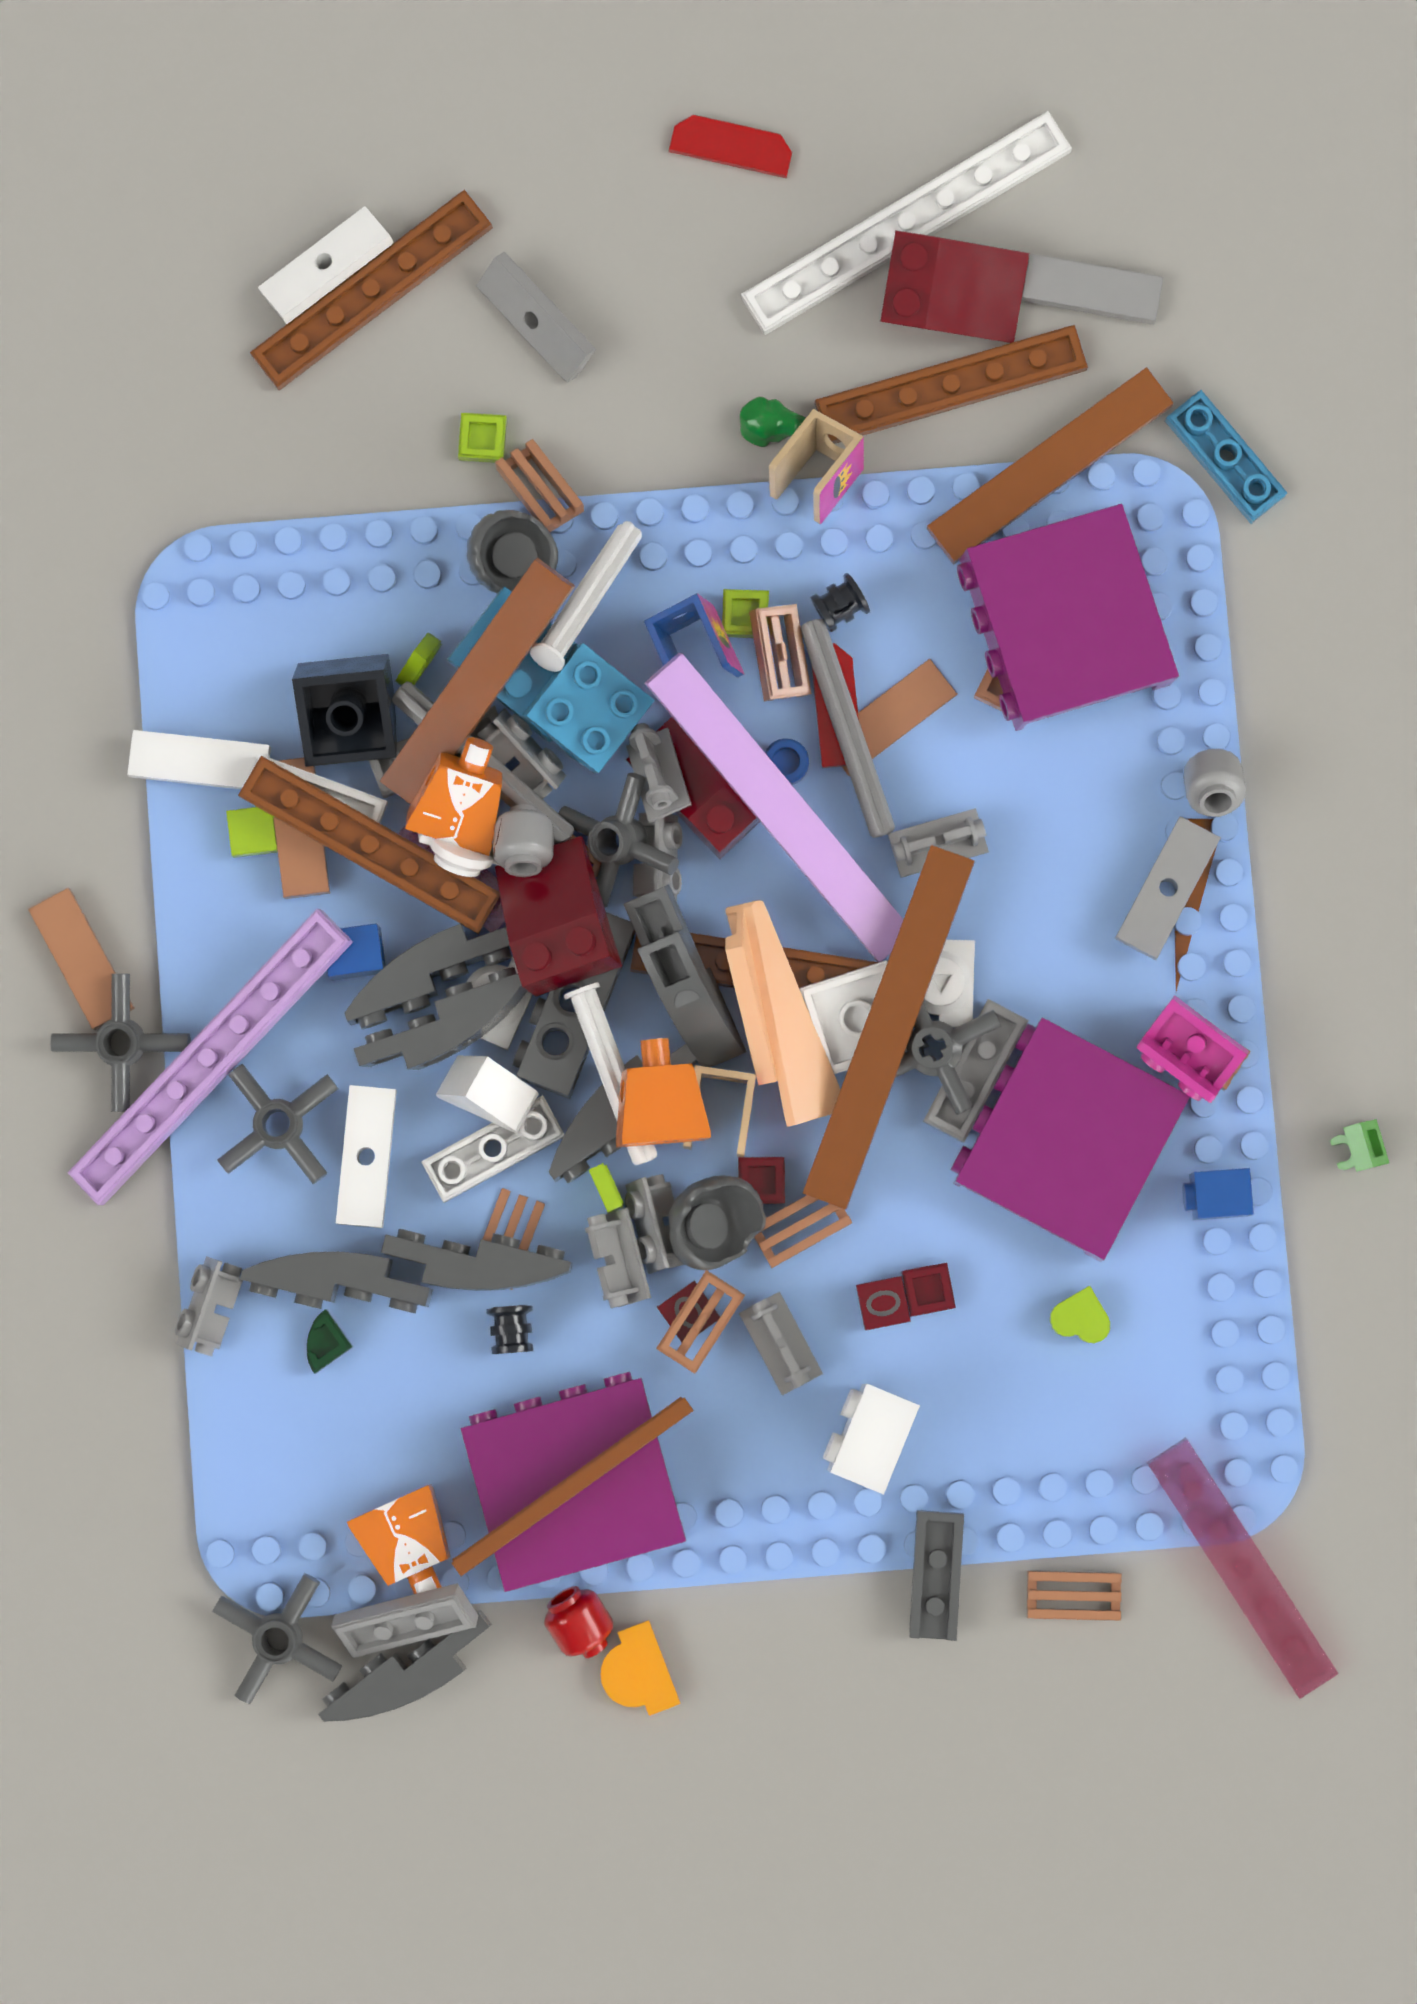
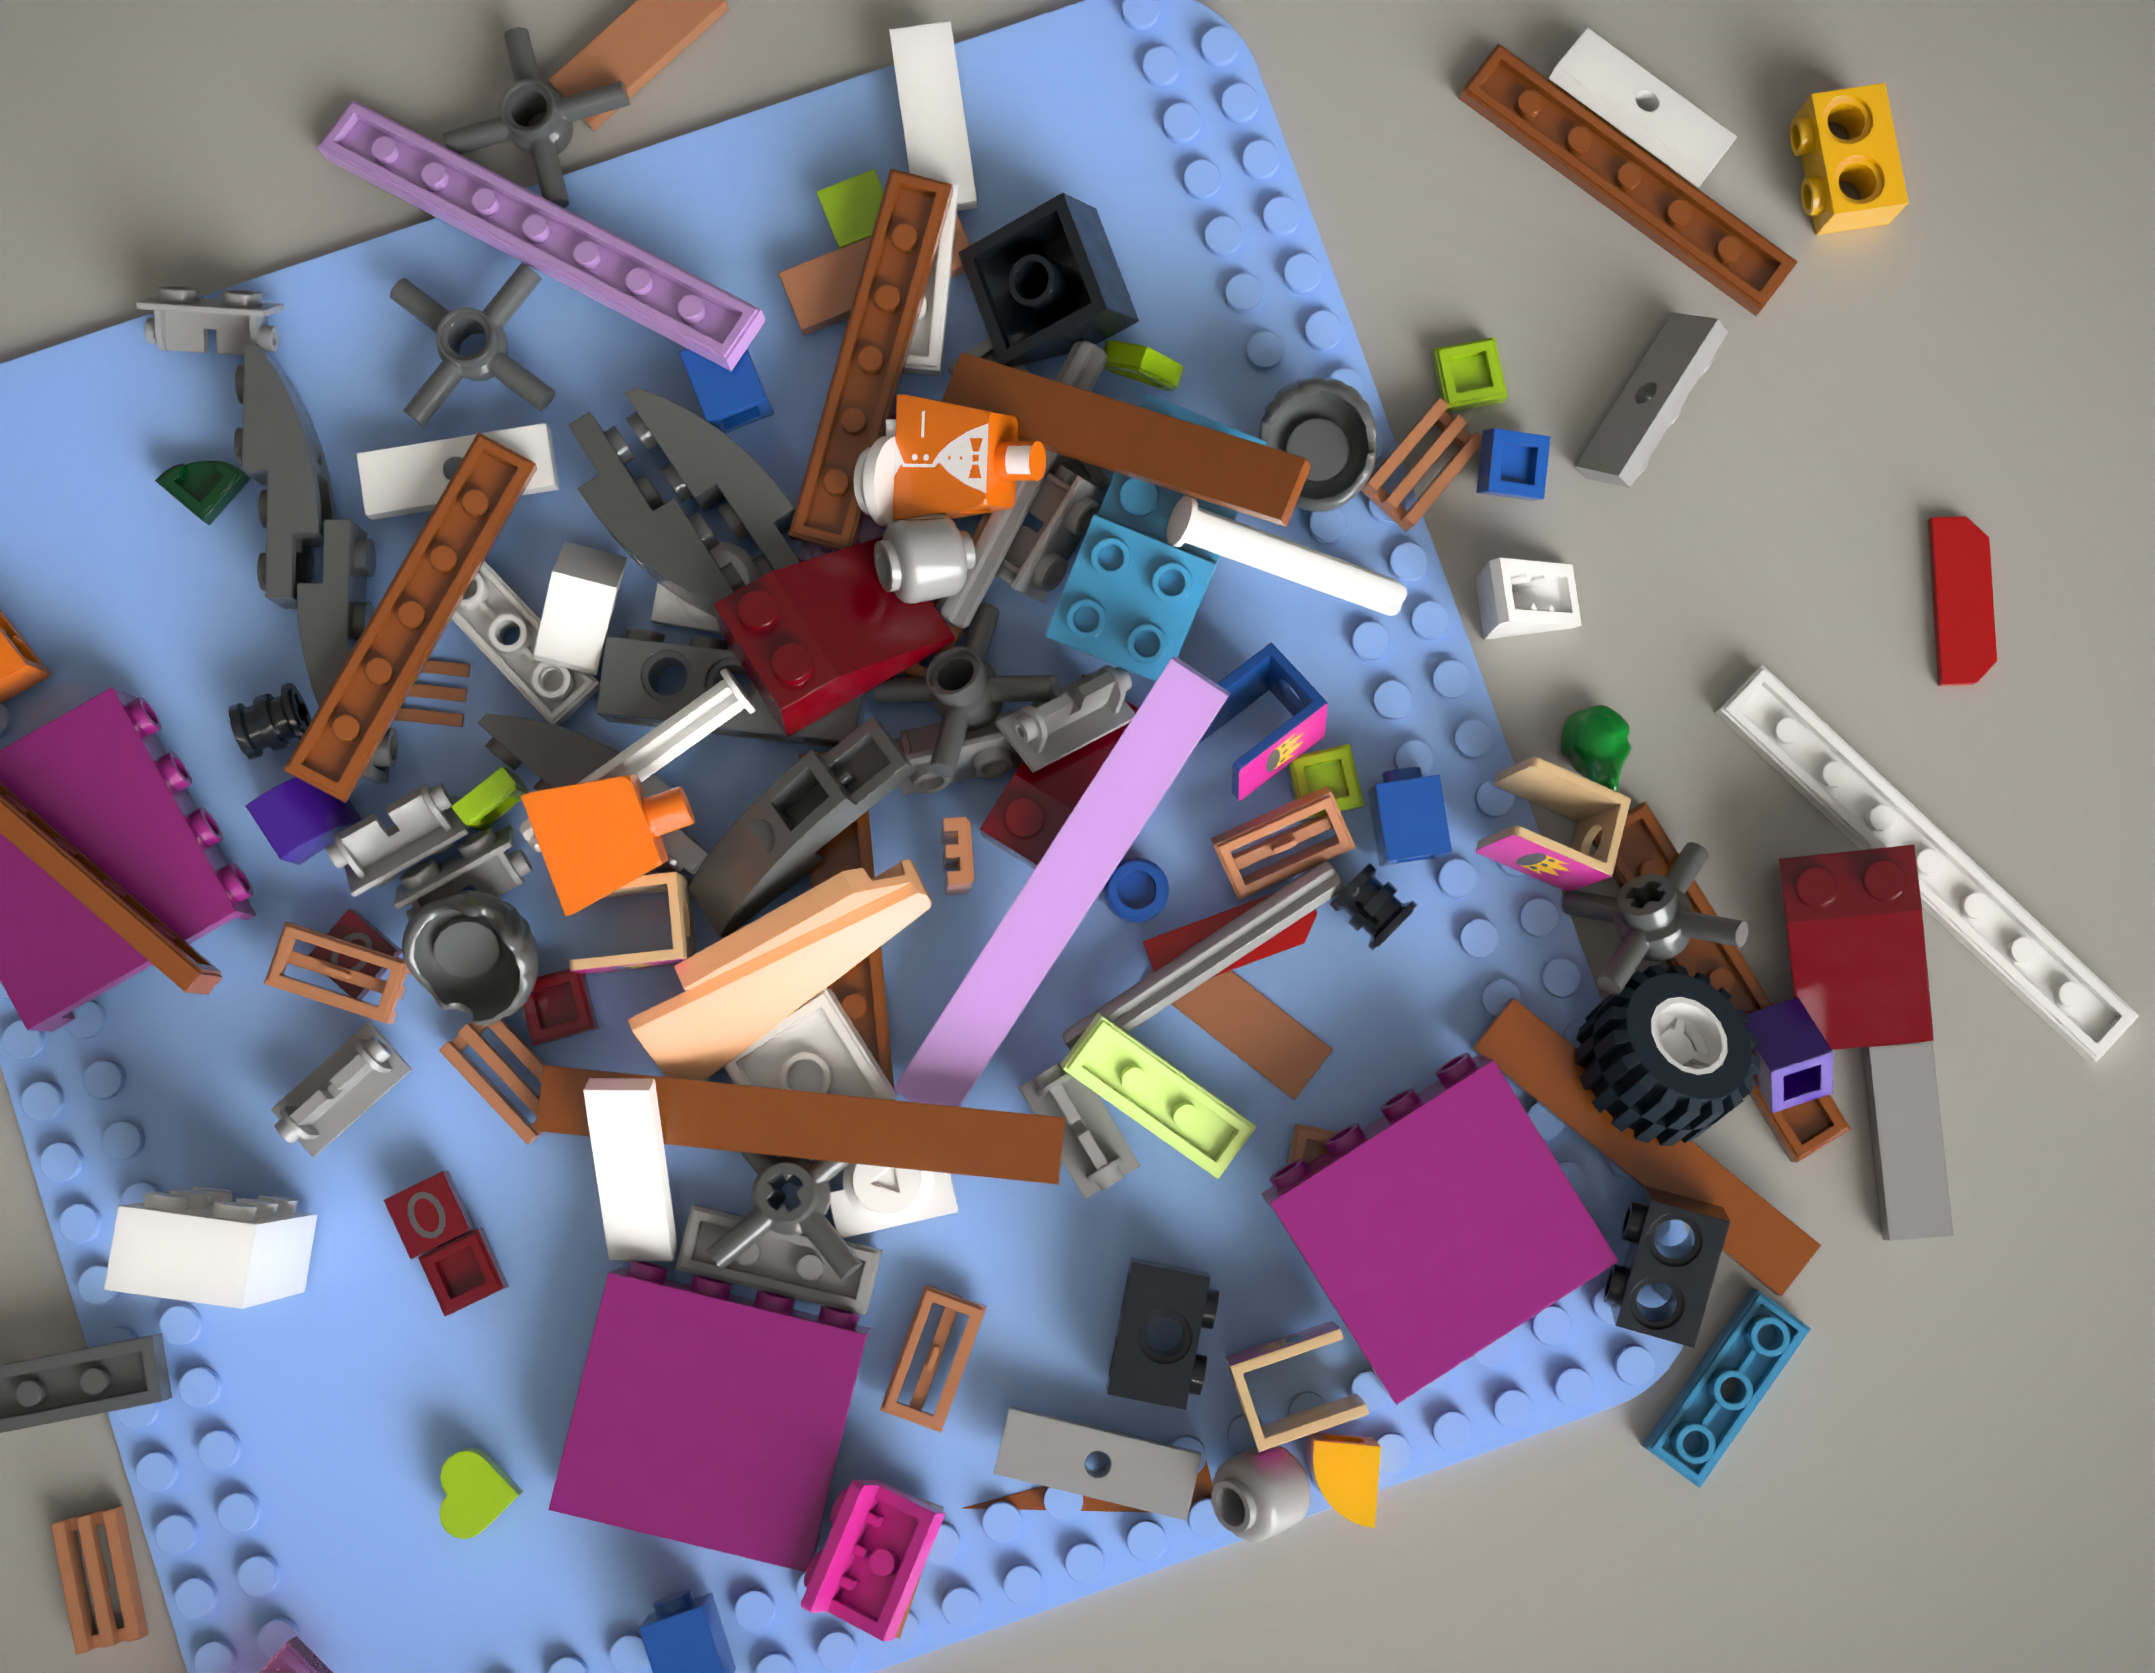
camera: 70 degrees right, 0 degrees up
(405, 122) = (1866, 160): none -> yellow brick
(467, 1206) = (410, 618): none -> dark orange tile
(556, 424) = (1513, 464): none -> blue plate
(582, 1321) = (300, 819): none -> dark purple brick
(652, 441) = (1526, 597): none -> white slope
(733, 875) = (957, 855): none -> nougat tile
(785, 562) = (1409, 817): none -> blue brick
(889, 1148) = (631, 1168): none -> white tile
(898, 416) = (1654, 918): none -> dark grey bar
(931, 782) = (1158, 1095): none -> yellowish green tile
(992, 433) = (1667, 1055): none -> black wheel
(1013, 353) = (1792, 1055): none -> dark purple brick
(1060, 998) = (953, 1303): none -> nougat tile
(1064, 824) = (1152, 1374): none -> black brick
(1137, 462) = (1683, 1267): none -> black brick
(1176, 741) = (1302, 1423): none -> tan piece
(1217, 723) = (1346, 1473): none -> yellow brick

